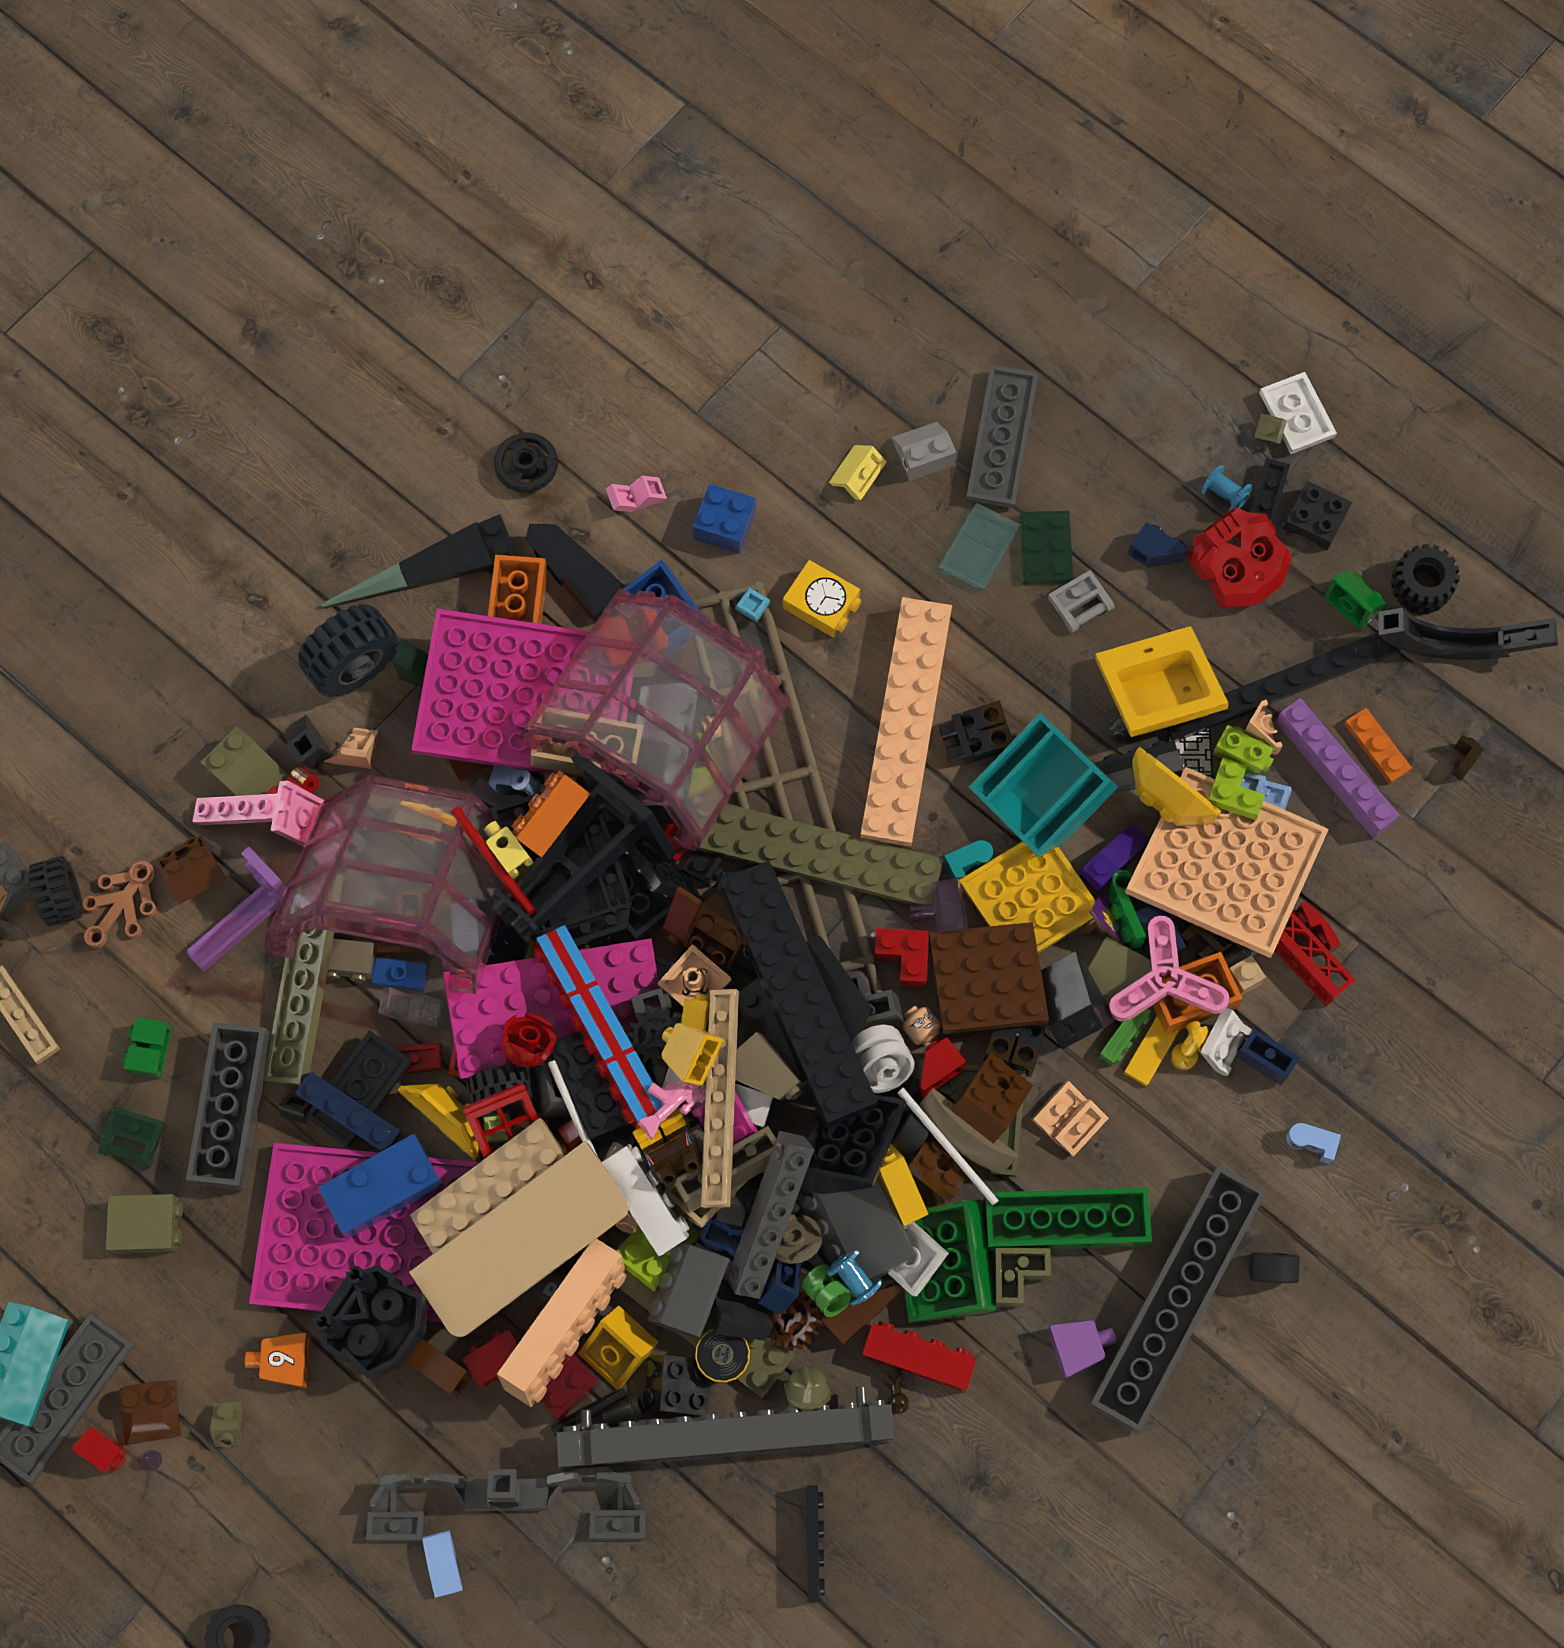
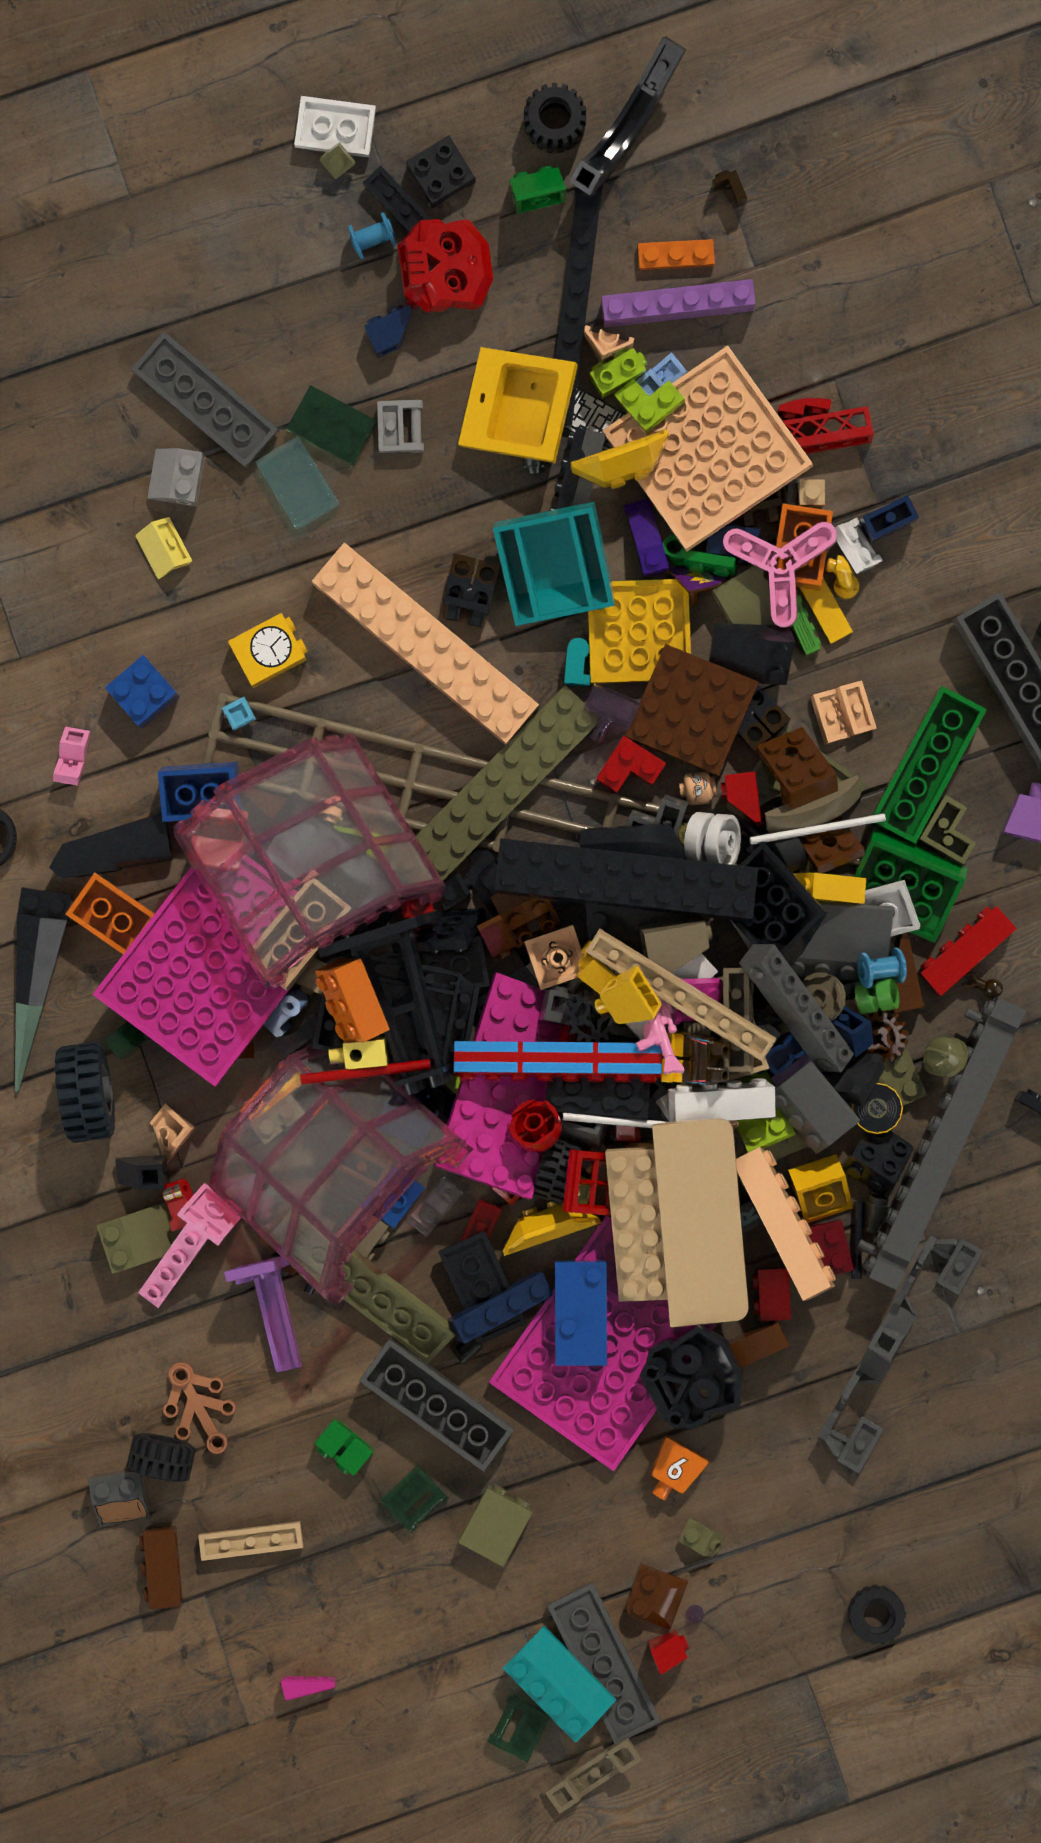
camera: 60 degrees left, 15 degrees up
(190, 869) = (202, 1331): reddish brown slope -> none
(442, 1563) = (911, 1422): light blue slope -> none
(1314, 1139) = (969, 530): light blue leg -> none

